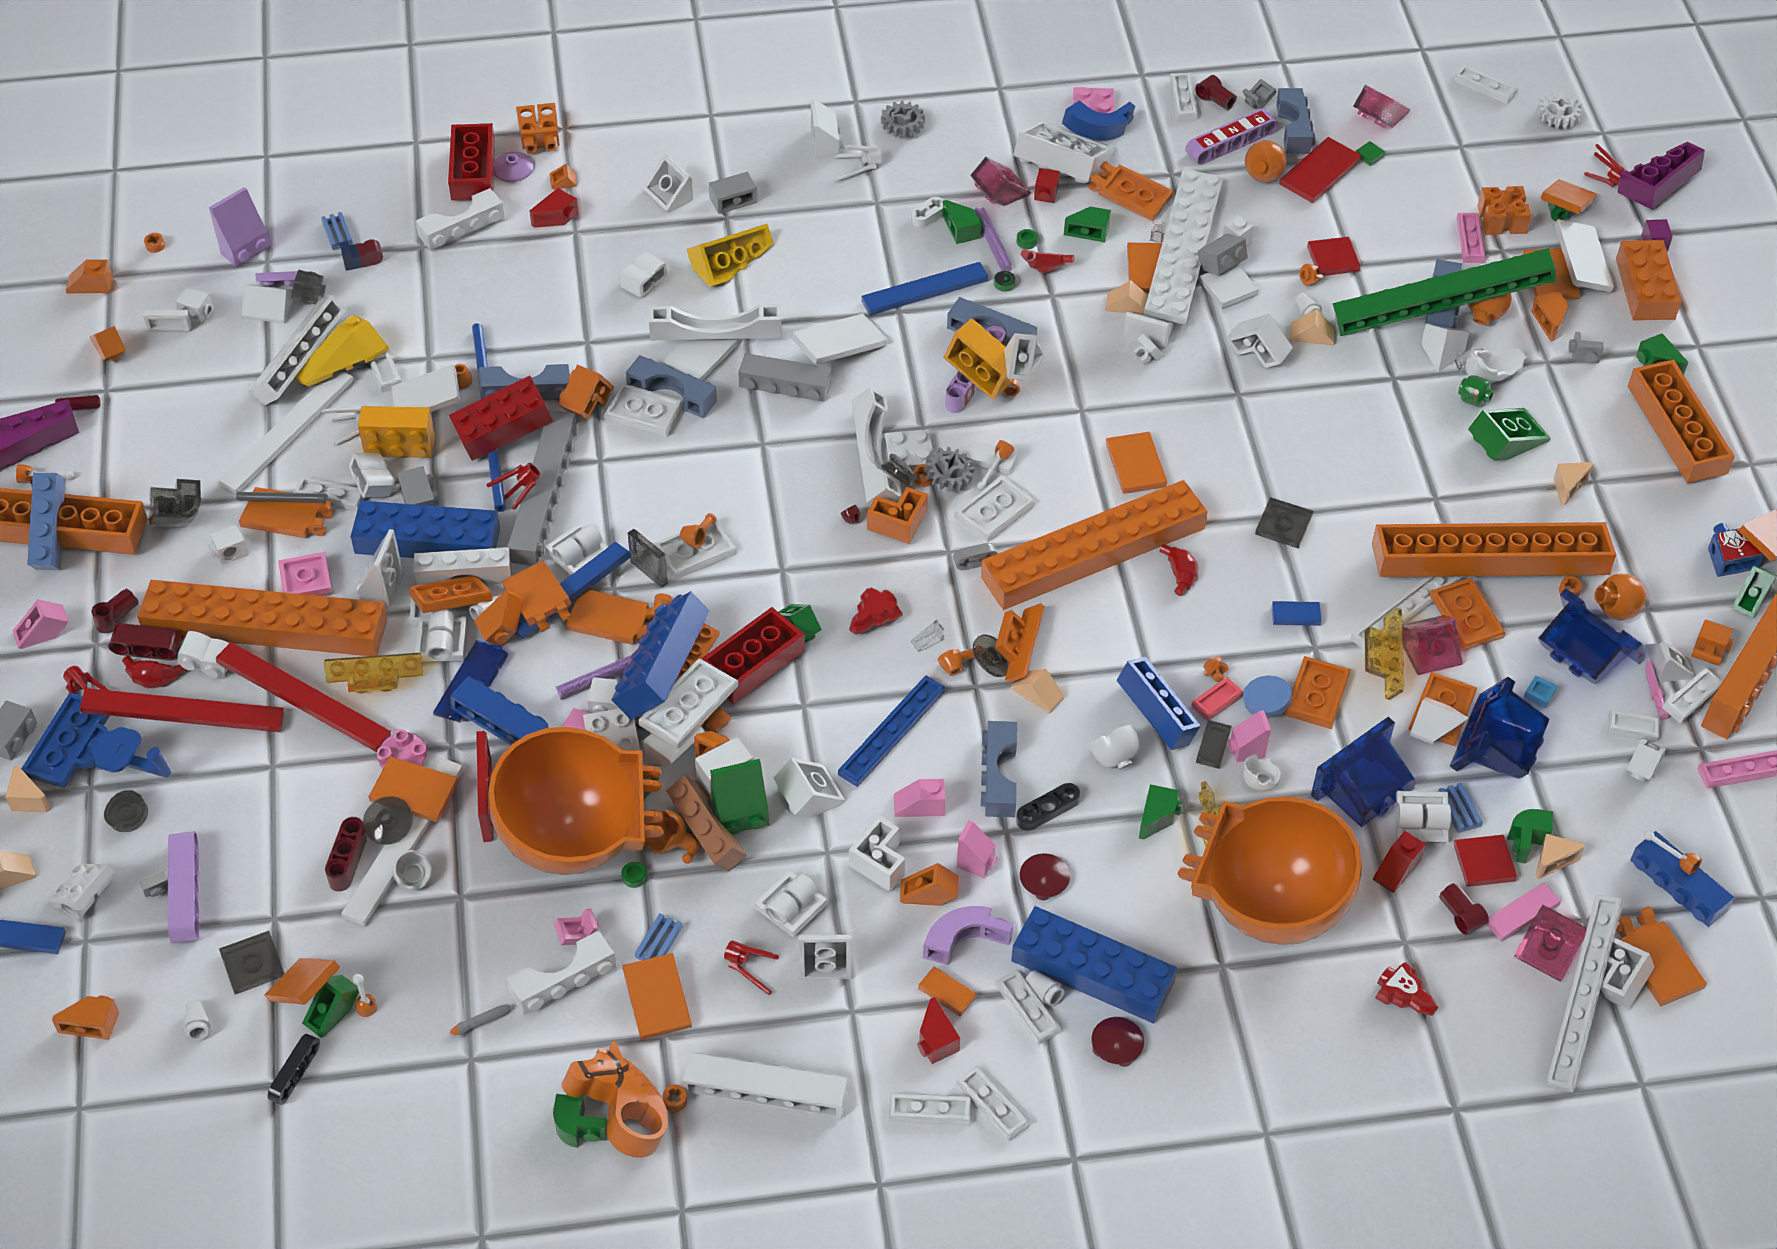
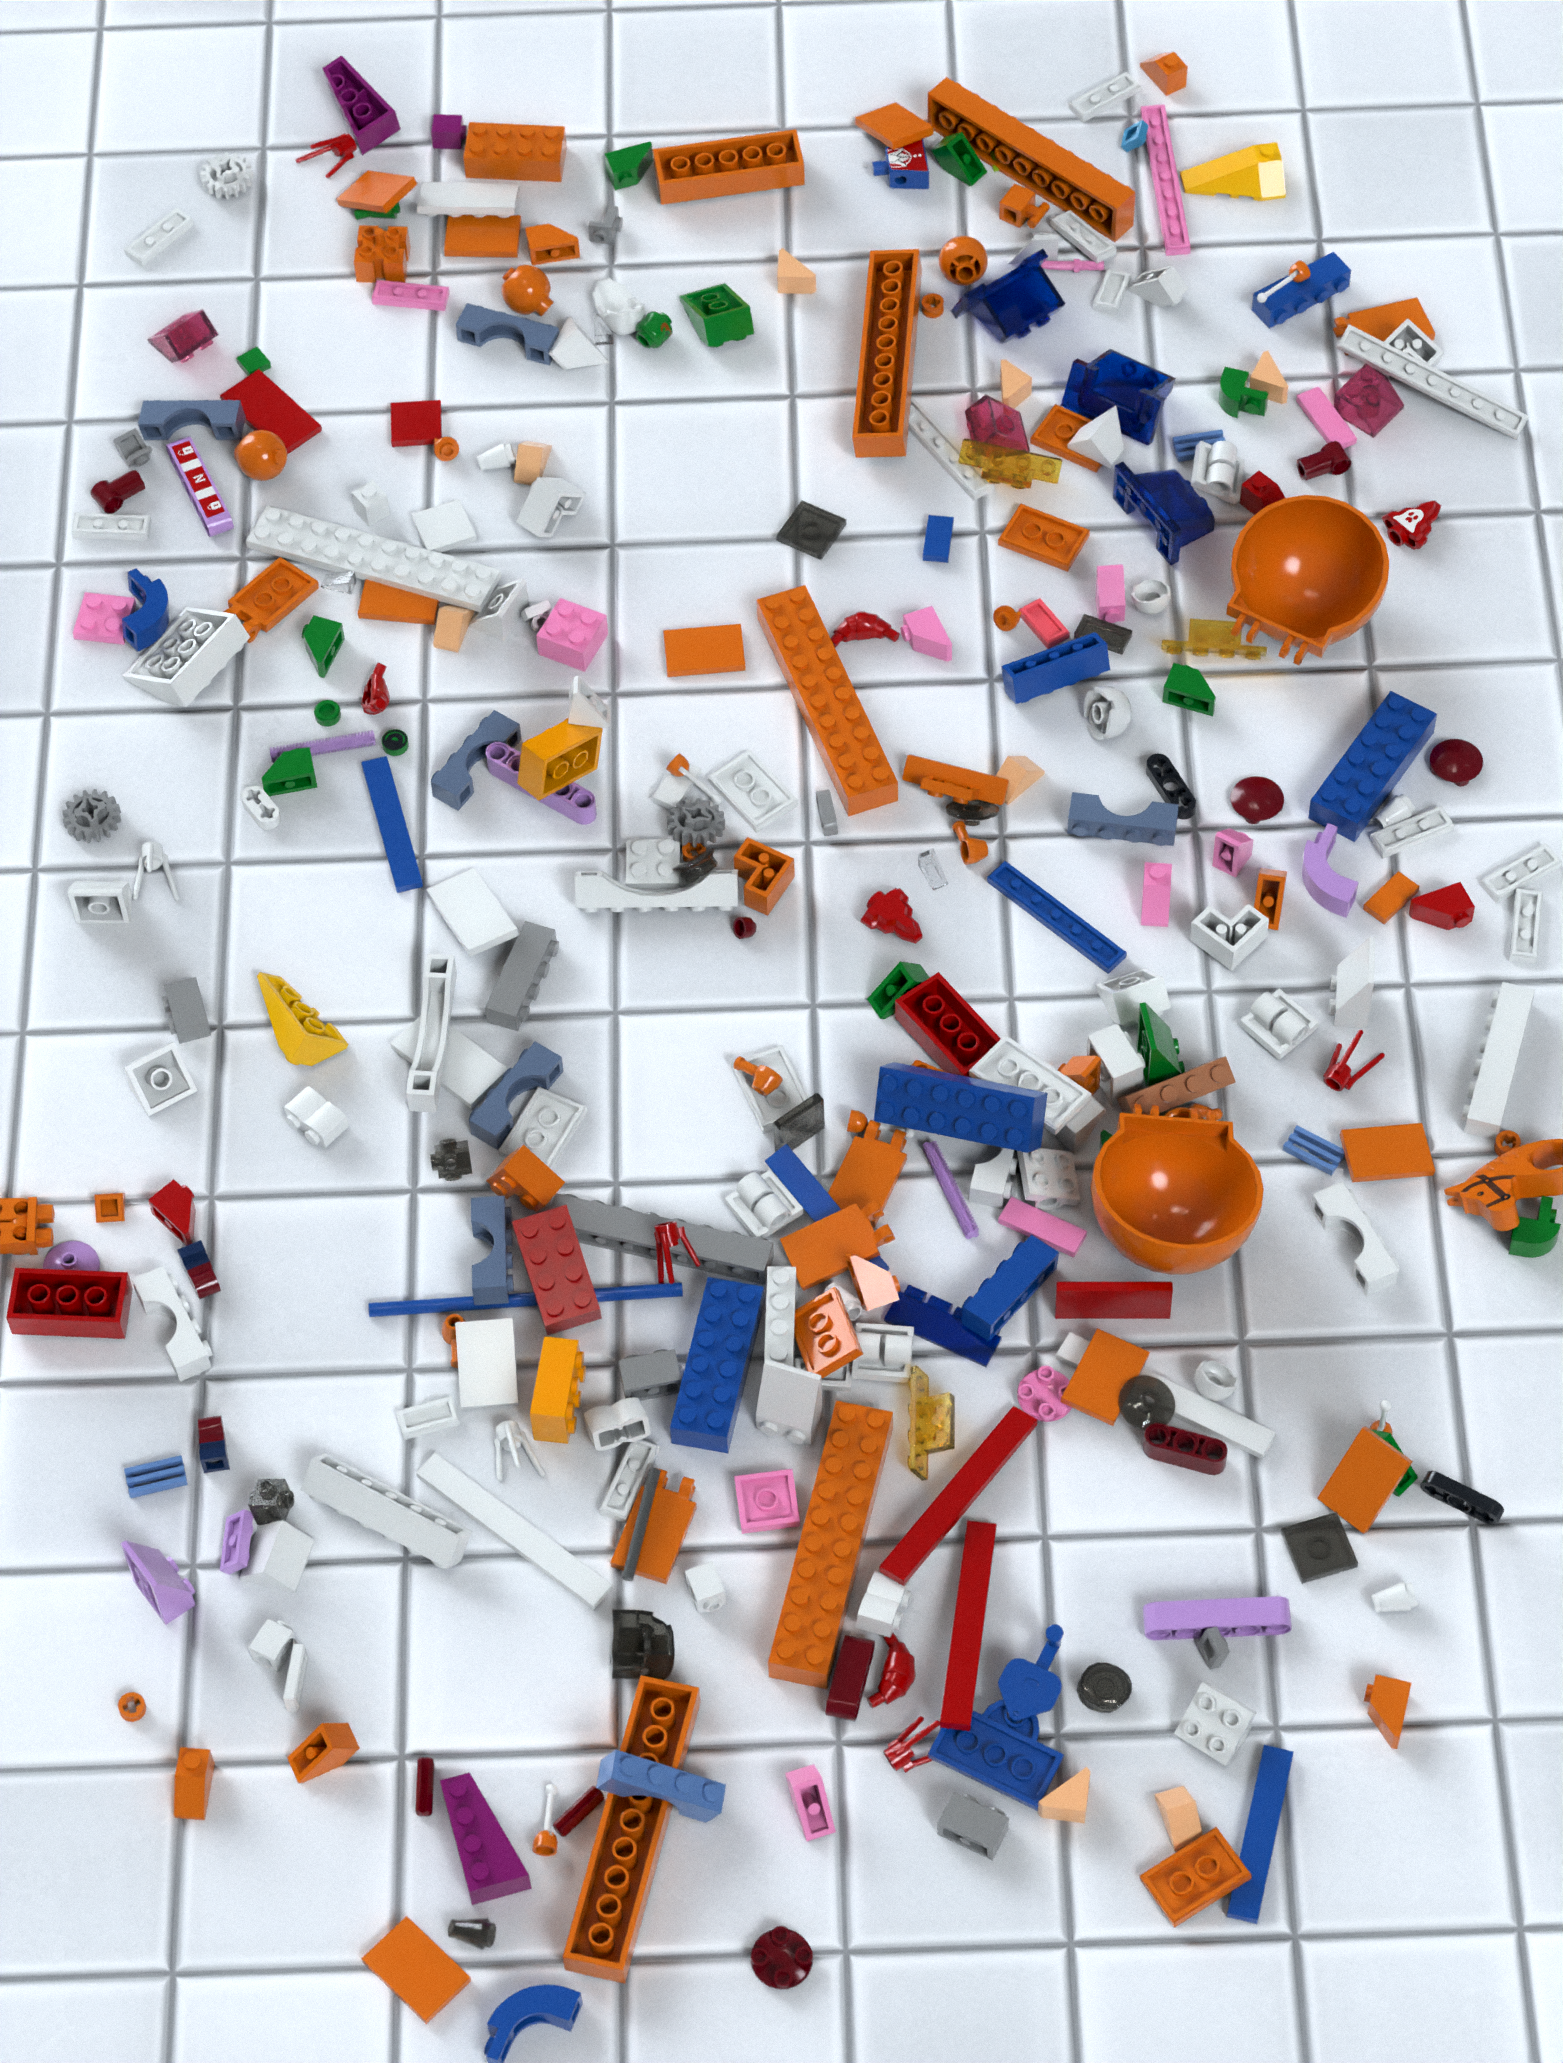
camera: 80 degrees left, 5 degrees up
(108, 613) = (795, 1715): dark red piece -> none
(345, 346) = (396, 1452): yellow wedge -> none
(480, 1019) = (1404, 1322): light grey piece -> none
(505, 229) = (199, 1269): none -> leg
(576, 928) = (1299, 1220): bright pink bracket -> none
(607, 353) = (455, 1168): none -> clear smoke brick
(998, 182) = (232, 727): clear pink slope -> none
(1046, 185) = (246, 679): red brick -> none
(1129, 371) = (572, 634): none -> bright pink brick
(1183, 610) = (926, 634): none -> bright pink slope
(1222, 254) = (404, 519): light grey brick -> none
(1267, 694) = (1049, 577): medium blue tile -> none
(1445, 292) = (526, 320): green brick -> none
(1472, 613) = (954, 393): orange tile -> none
(1484, 651) = (1015, 384): none -> light nougat slope
(1485, 860) = (1265, 437): red tile -> none
(1540, 691) = (1065, 353): dark azure plate -> none

